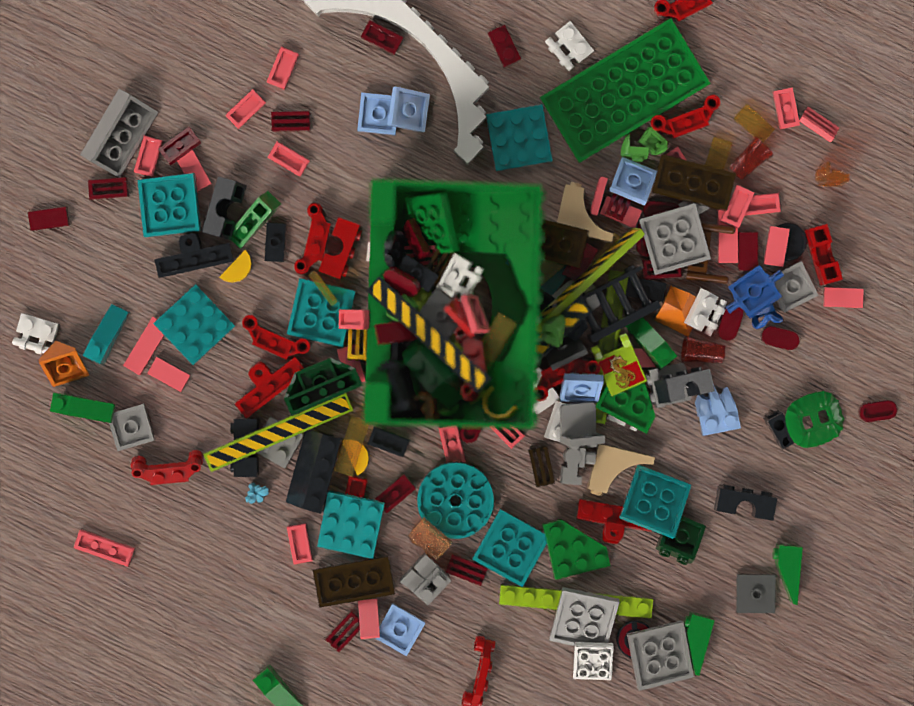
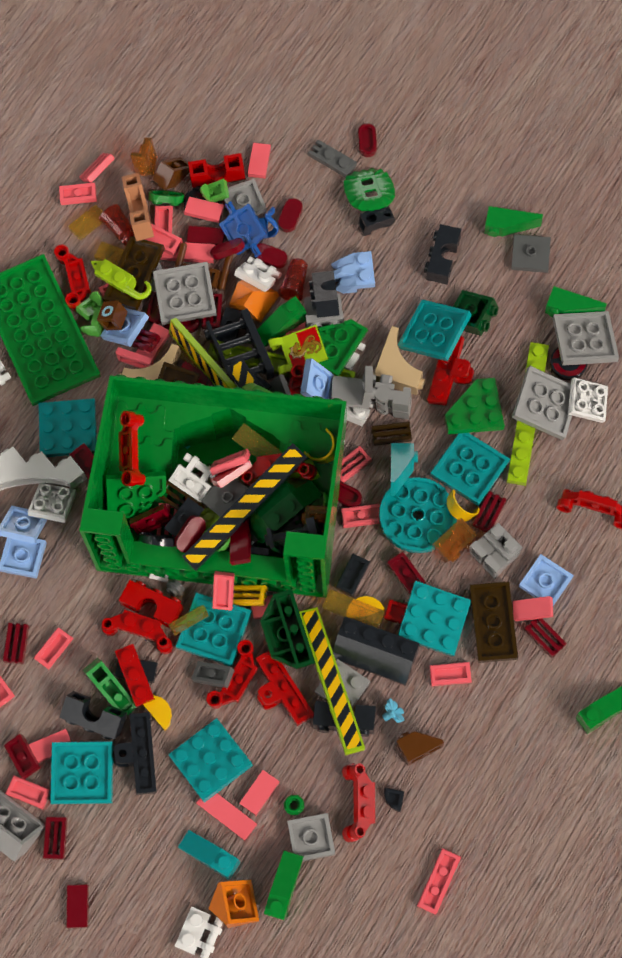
camera: 75 degrees left, 20 degrees down
(154, 408) = (294, 798): none -> green plate
(176, 500) = (394, 798): none -> black tile
(225, 518) = (417, 746): none -> reddish brown slope
(266, 242) = (134, 675): none -> red plate
(274, 317) = (212, 674): none -> dark grey plate
(358, 269) = (175, 588): none -> dark grey plate
(435, 135) = (52, 502): none -> white tile
(461, 537) = (455, 509): none -> yellow helmet
(469, 213) = (129, 449): none -> red plate
(479, 165) = (83, 458): none -> dark red plate
(504, 480) = (402, 464): none -> teal slope
(642, 167) = (112, 315): none -> reddish brown brick
(683, 169) = (119, 279): none -> lime plate
(730, 277) = (227, 248): none -> dark red tile
(769, 177) = (138, 207): none -> nougat arch
(789, 203) = (161, 196): none -> green plate
(797, 256) = (215, 191): none -> bright green plate
(819, 206) = (171, 173): none -> reddish brown slope
(851, 376) = (332, 158): none -> dark grey hinge

